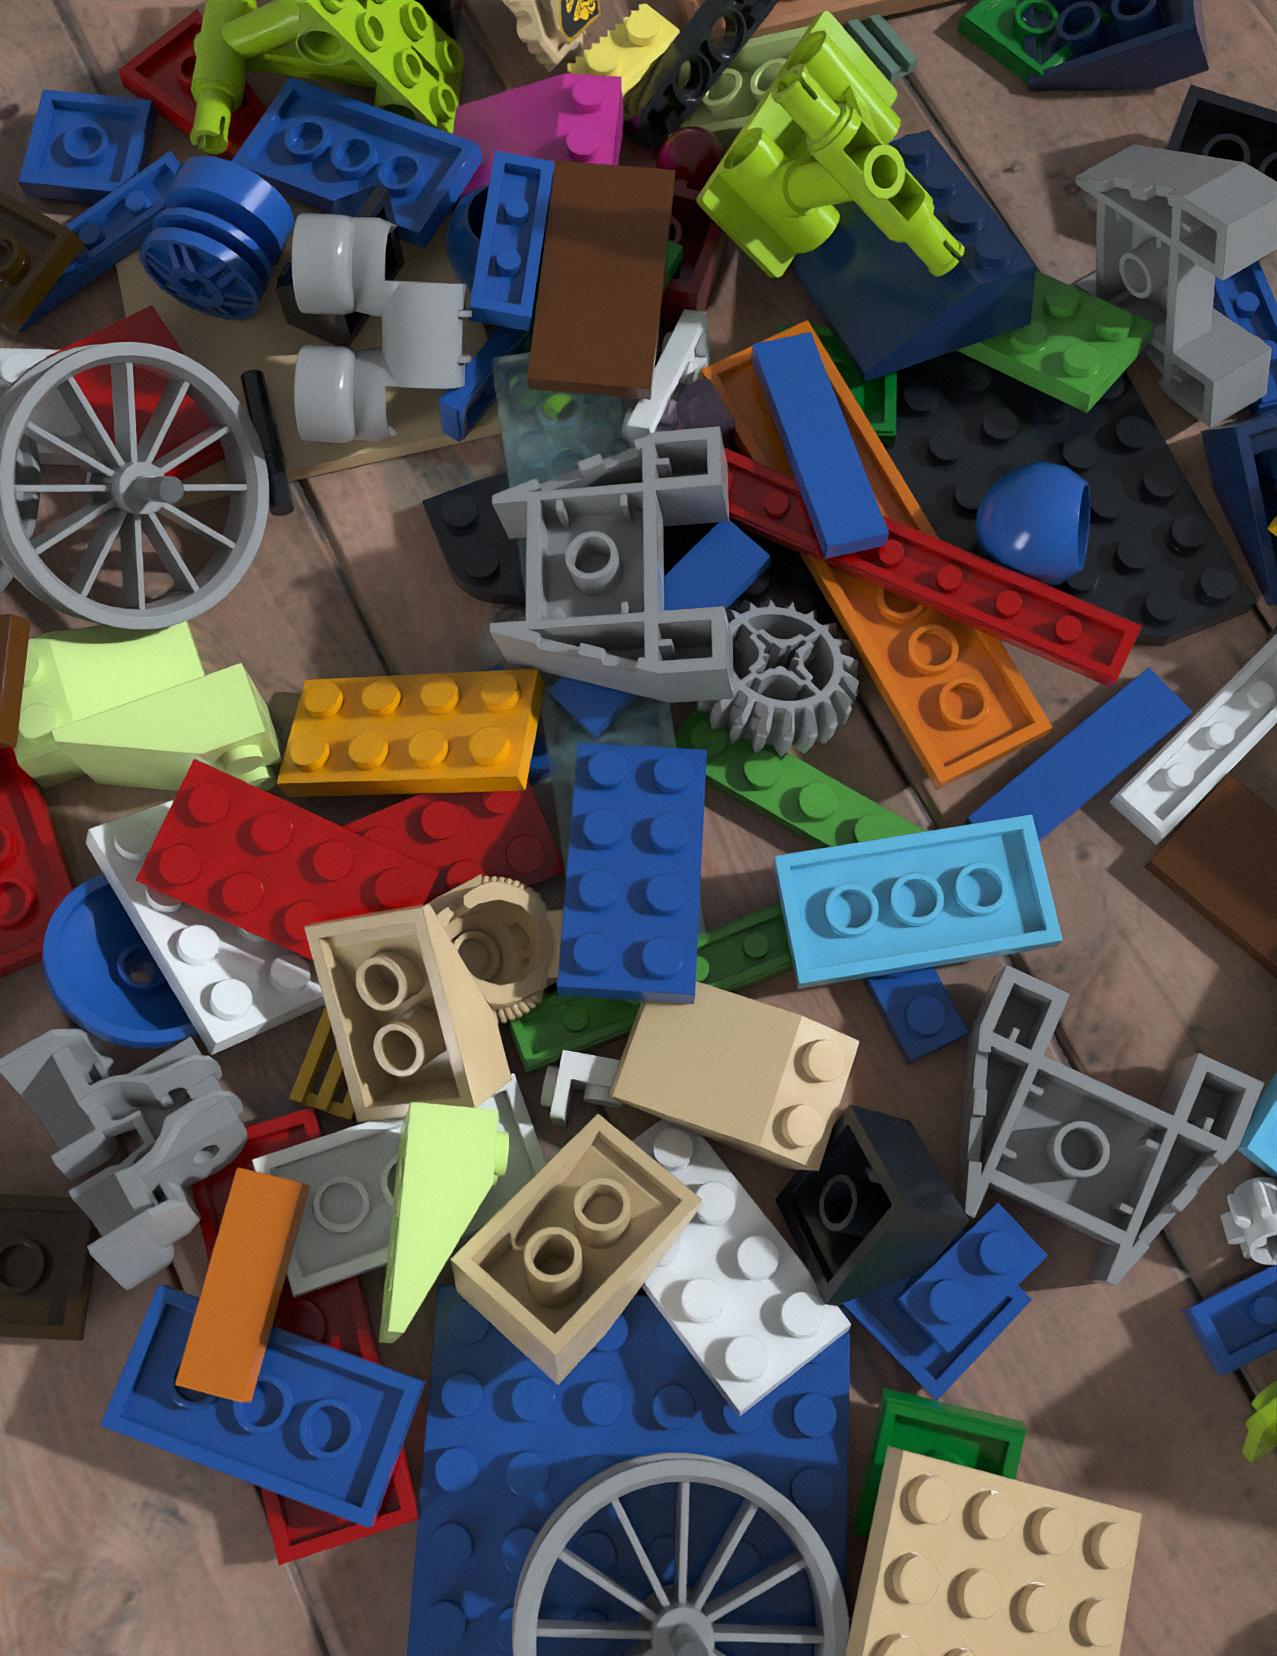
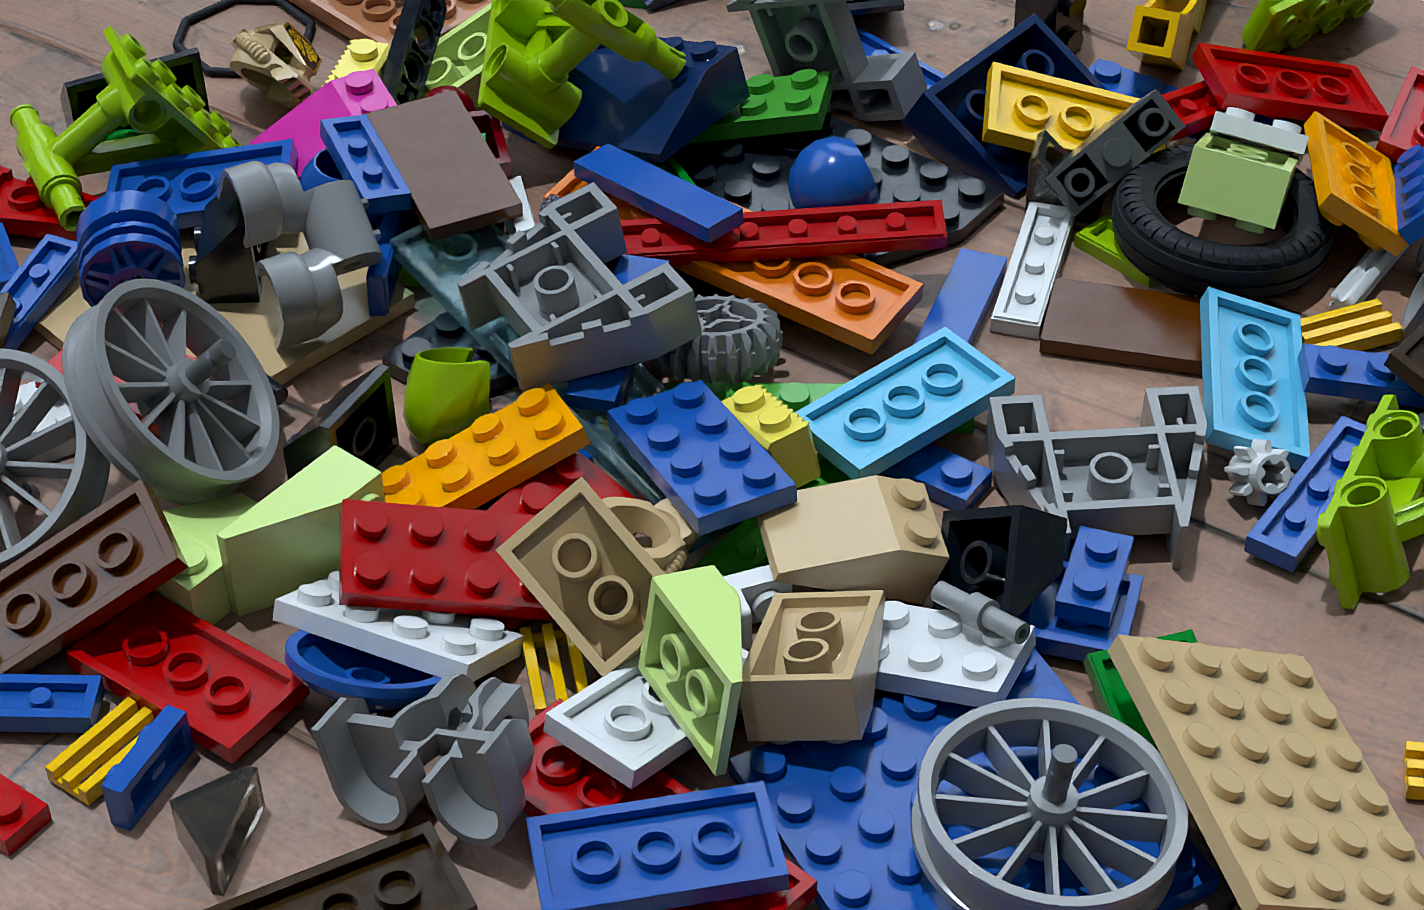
camera: 30 degrees left, 30 degrees down
(243, 1285) = (594, 775): orange tile -> none
(307, 611) = (355, 419): none -> black slope
(443, 604) = (445, 393): none -> lime piece
(739, 866) = (778, 431): none -> light yellow brick
(790, 1292) = (980, 612): none -> light grey bar

